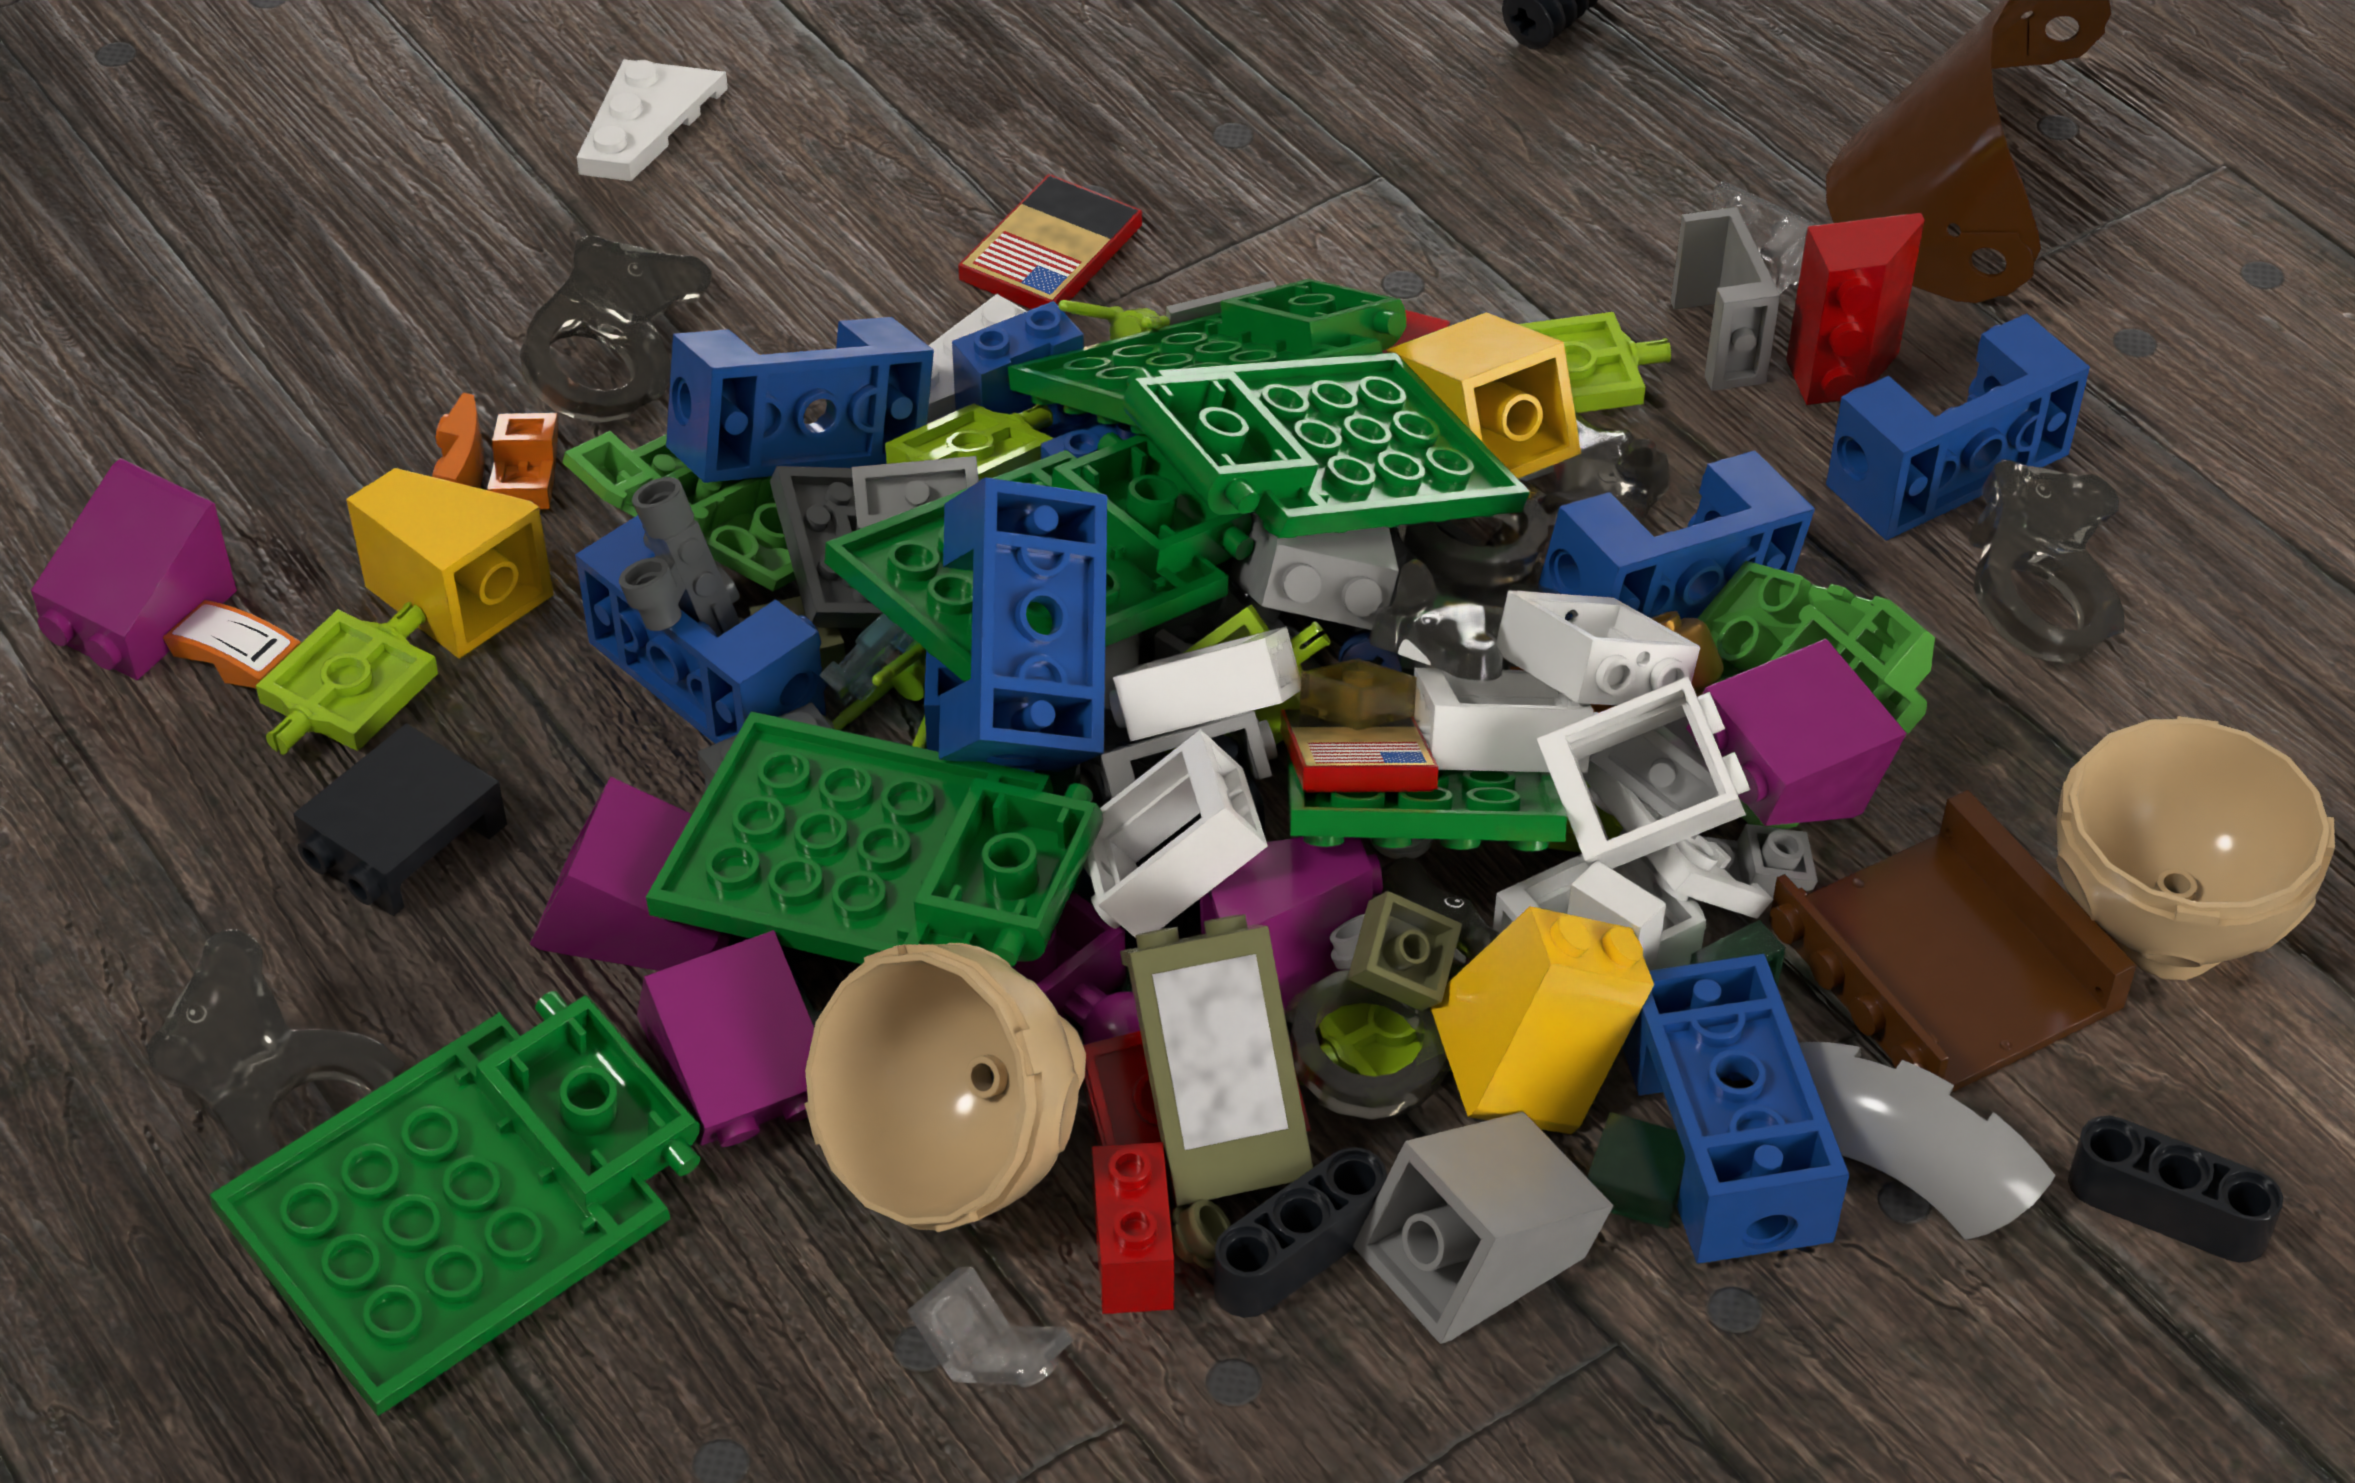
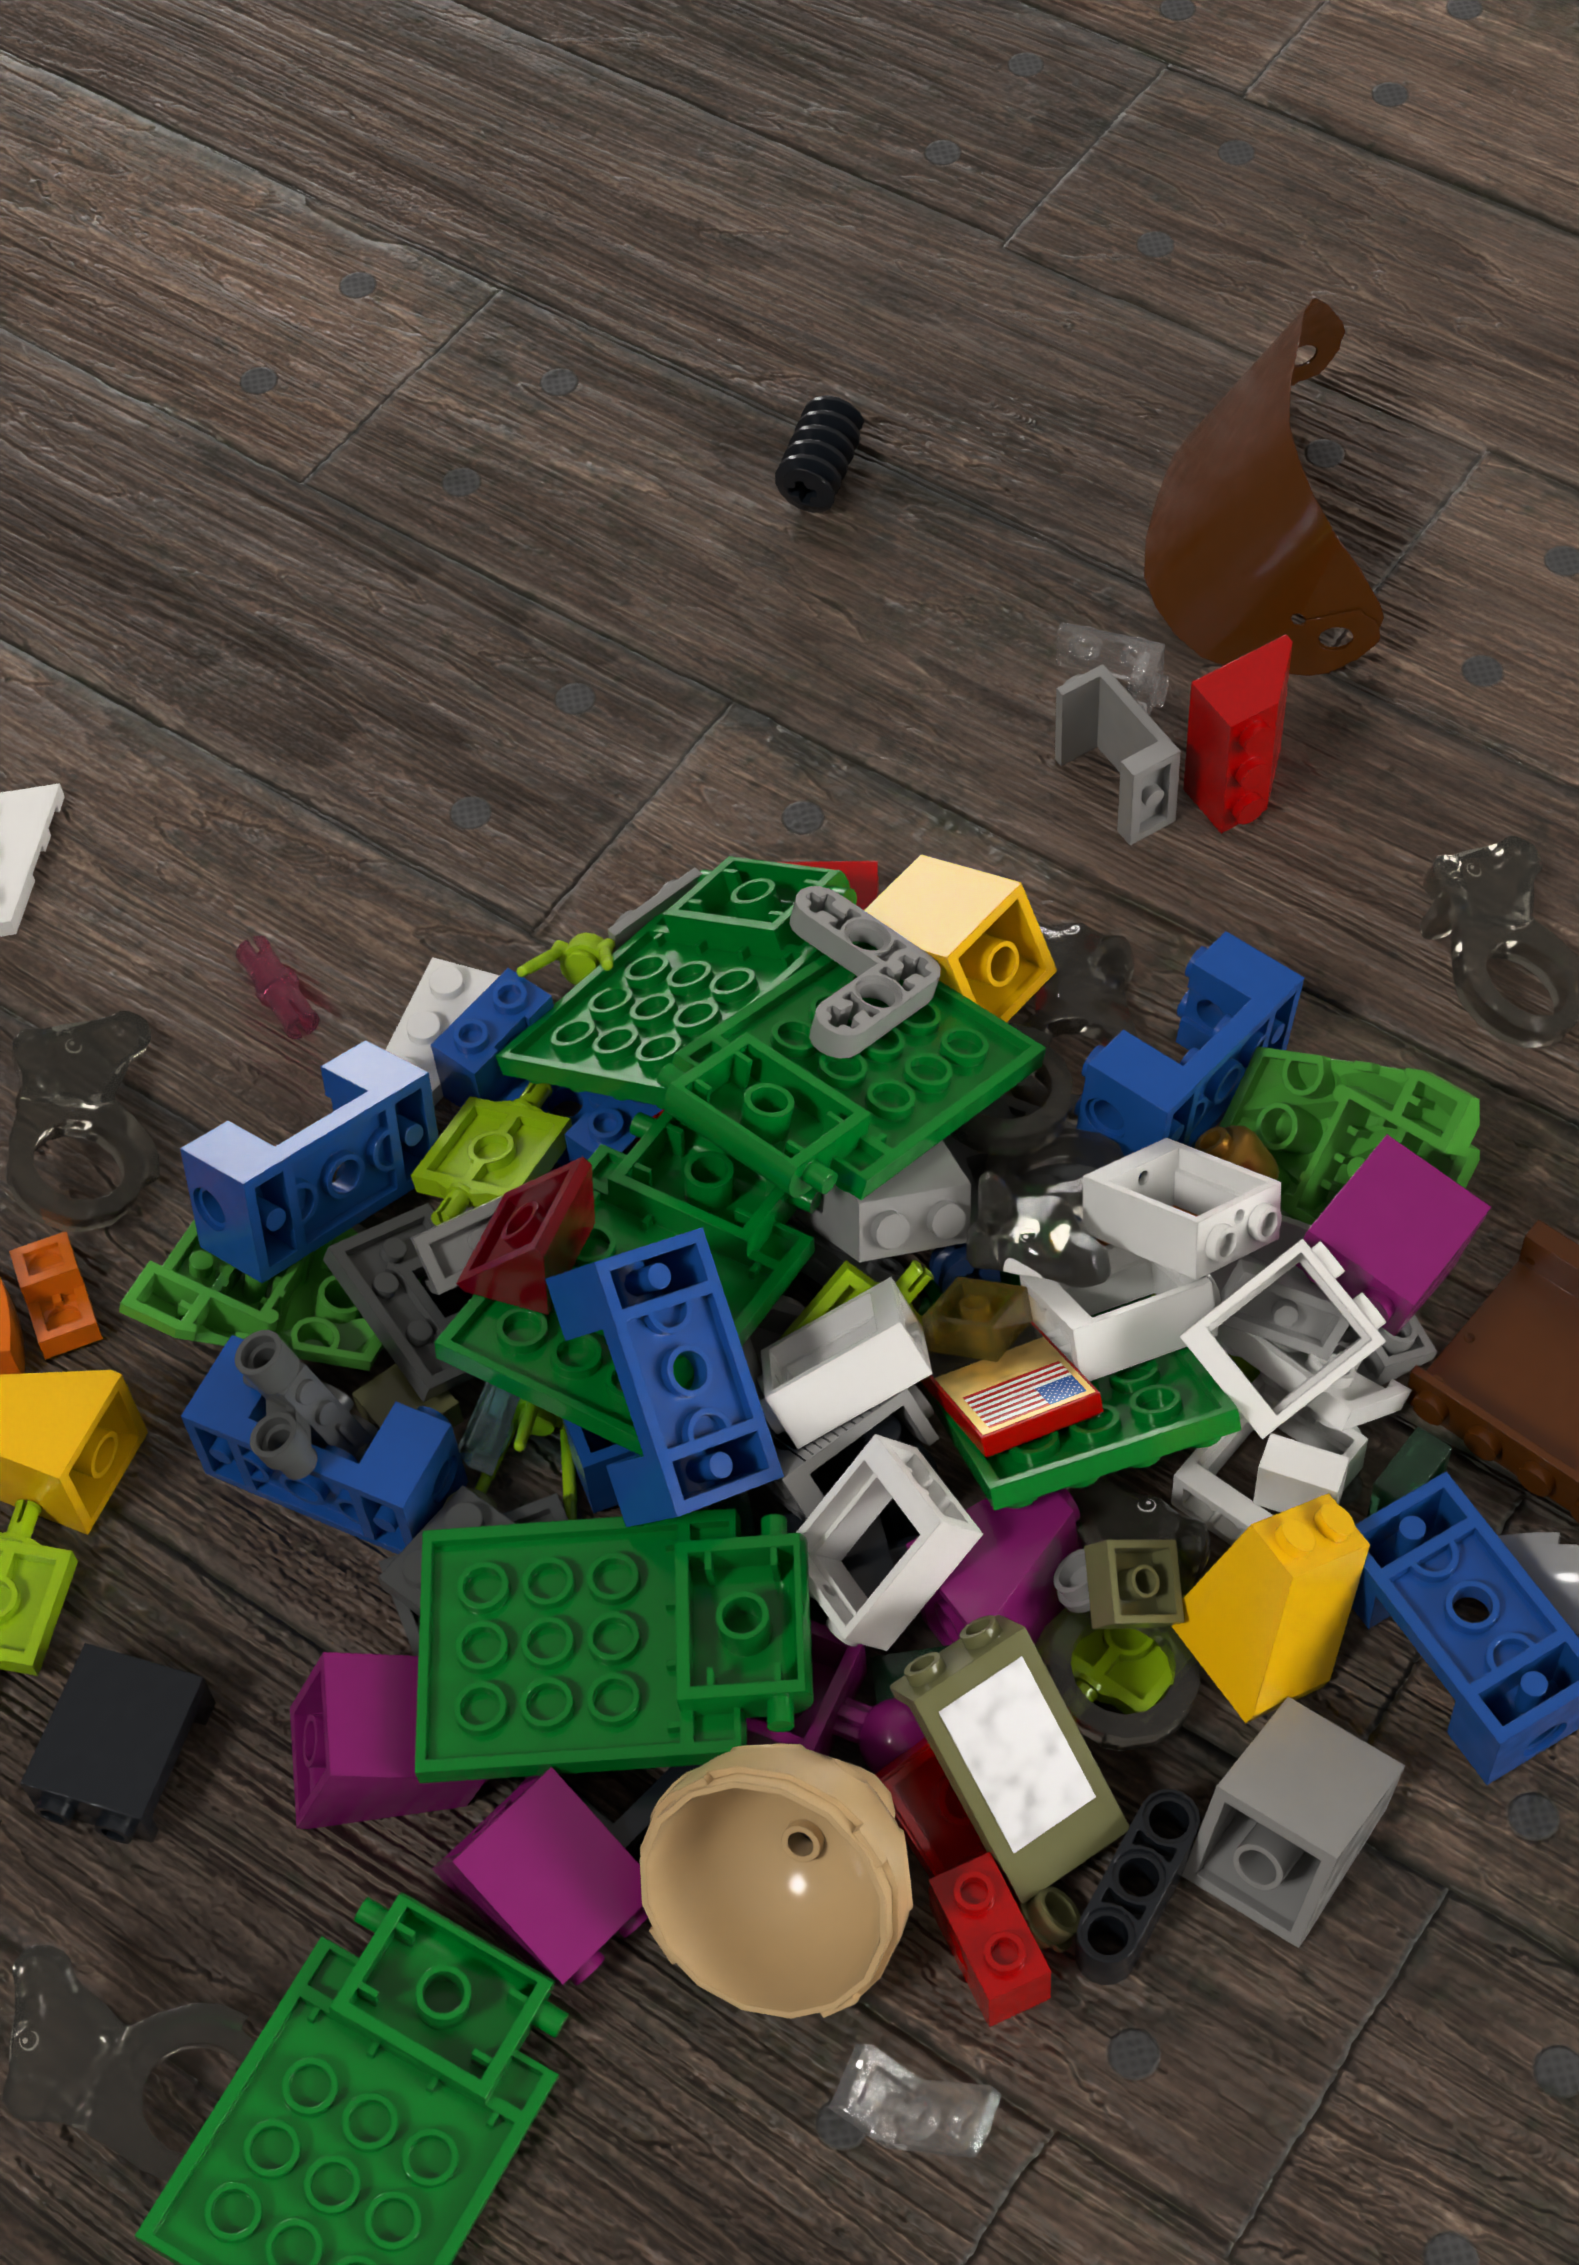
camera: 15 degrees left, 10 degrees up
(842, 277) = (277, 987): none -> clear pink pin
(919, 503) = (533, 1237): none -> dark red slope
(1050, 244) = (457, 882): tile -> none
(1395, 377) = (831, 926): none -> light grey beam
(1603, 360) = (1013, 846): lime plate -> none
(1639, 1169) = (1401, 1708): clear green piece -> none
(1908, 466) = (1343, 884): blue plate -> none

